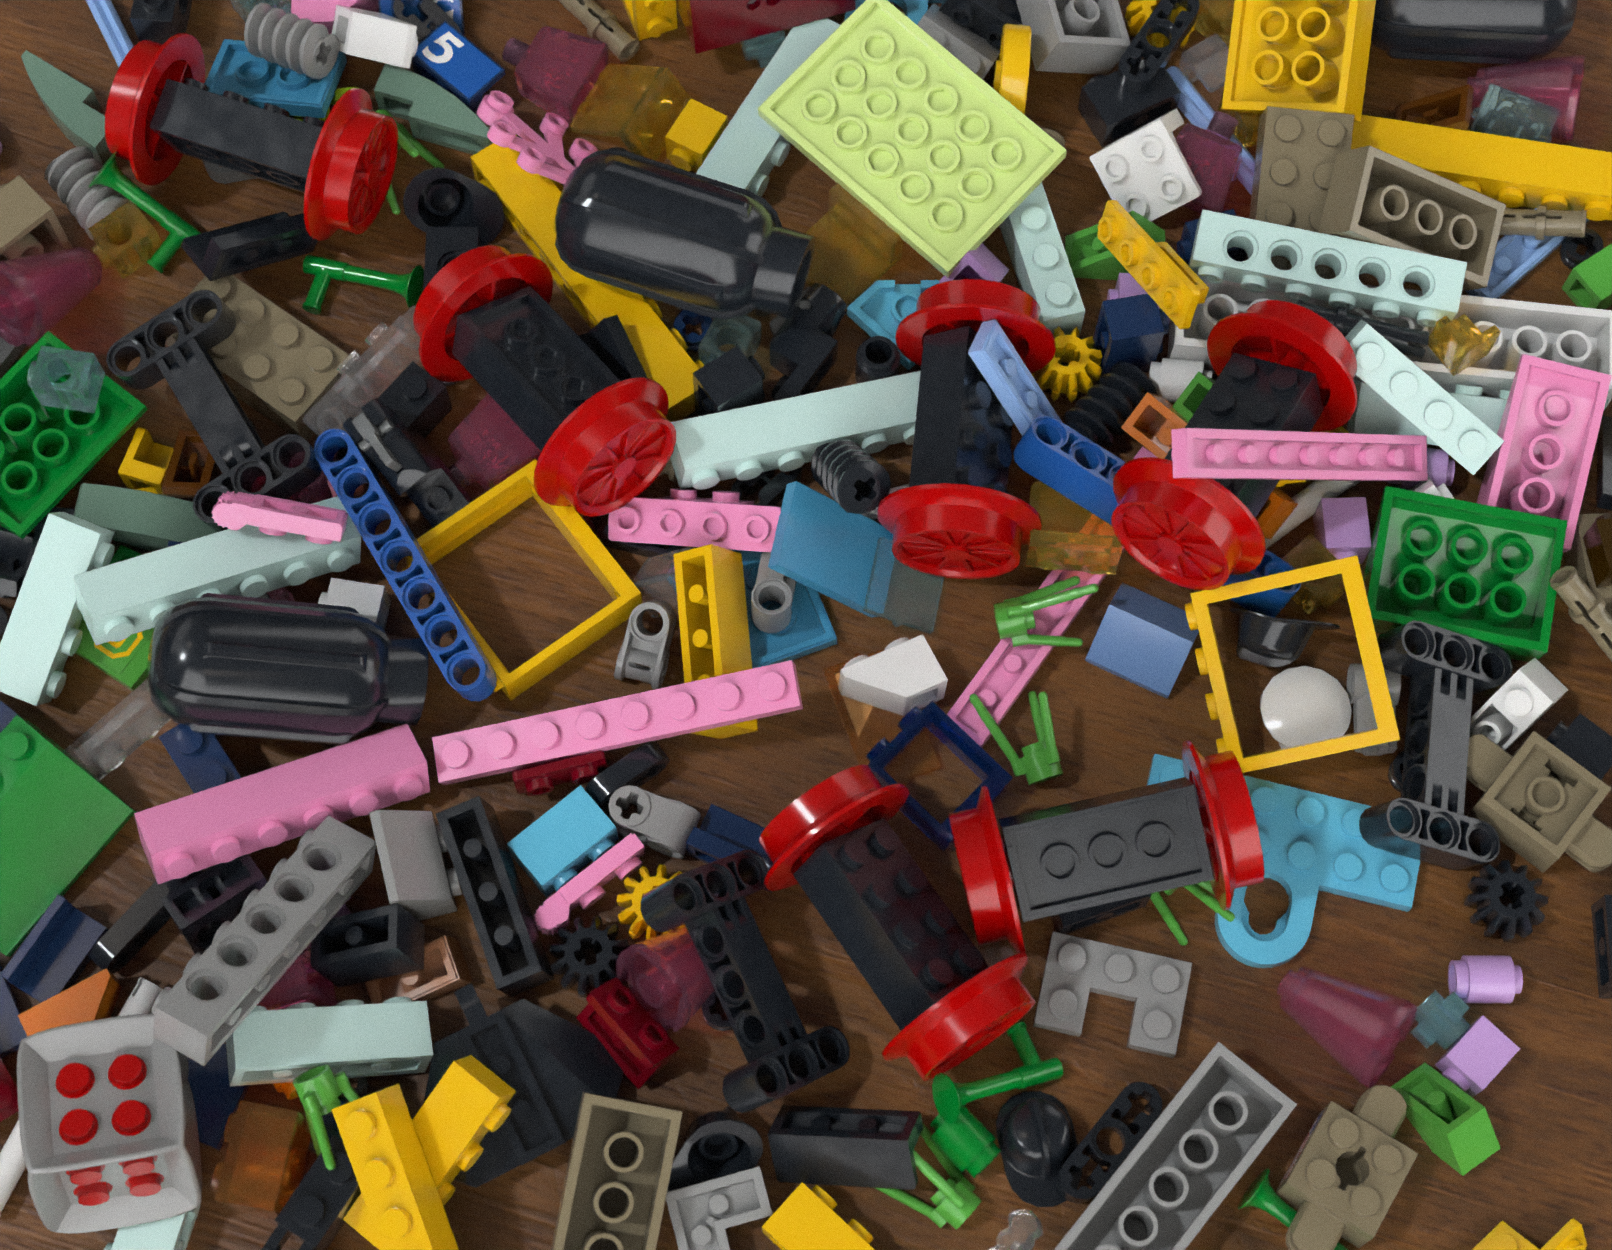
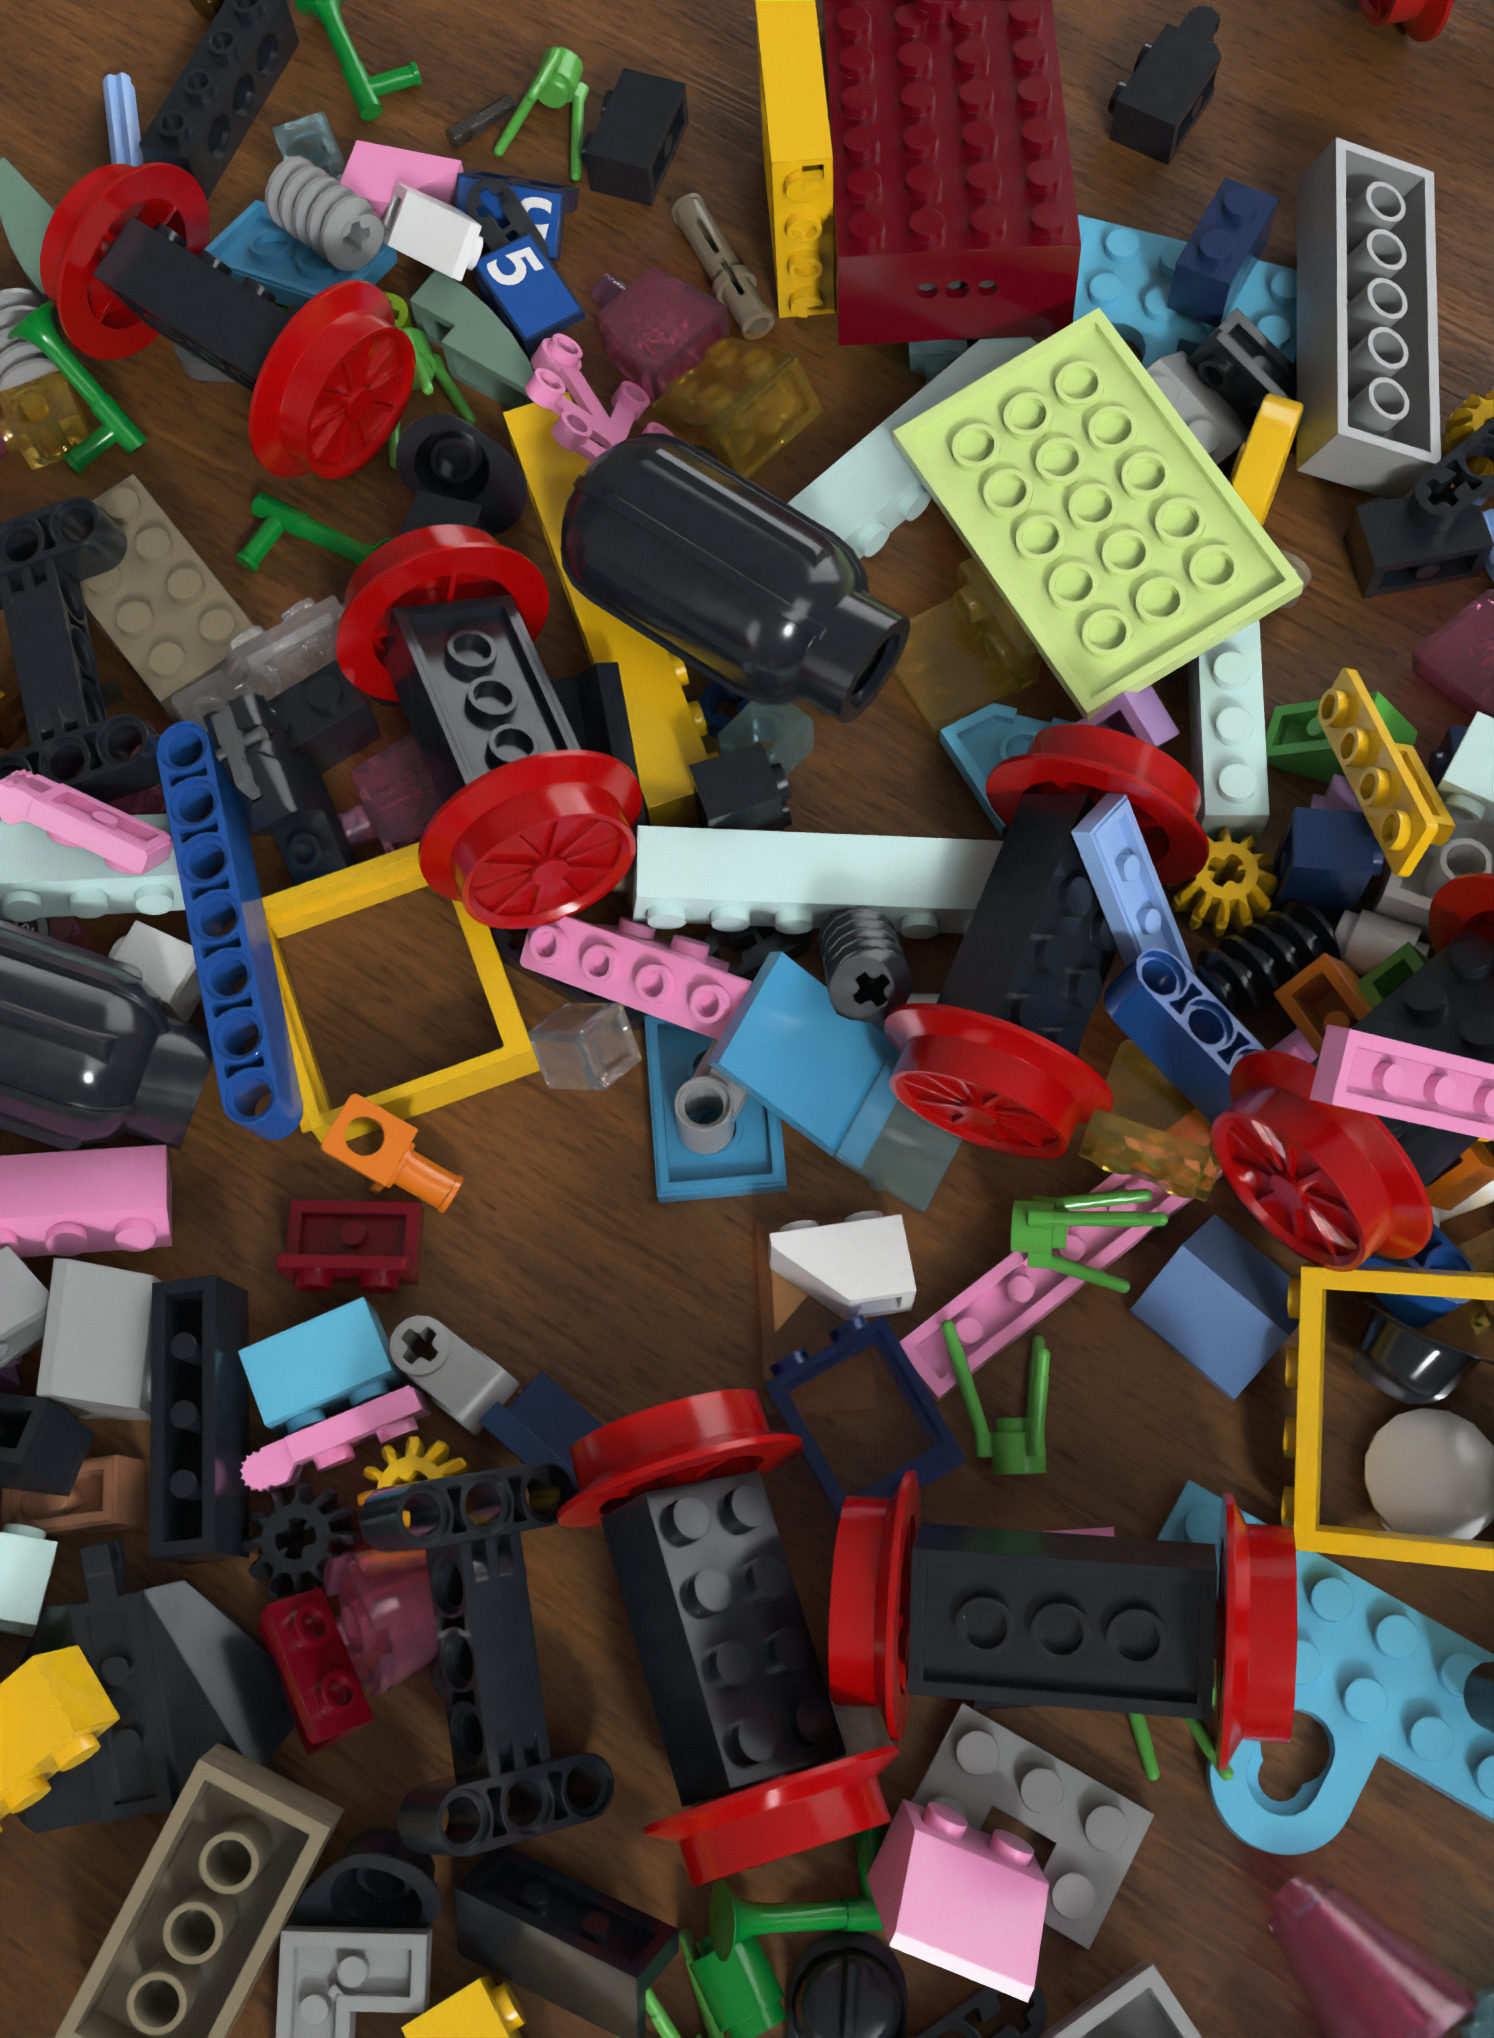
camera: 25 degrees right, 0 degrees up
(249, 245) = (180, 461): black panel -> none
(569, 691) = (395, 1160): none -> orange bracket
(617, 722) = (444, 1225): bright pink plate -> none
(631, 770) = (440, 1295): black beam -> none
(646, 647) = (514, 1131): light grey piece -> none
(694, 135) = (805, 450): yellow brick -> none
(713, 620) = (610, 1147): yellow brick -> none
(804, 342) = (868, 763): black plate -> none
(876, 359) = (957, 811): black brick -> none
(1089, 1036) = (961, 1897): none -> bright pink slope
(1148, 169) = (1417, 640): white bracket -> none

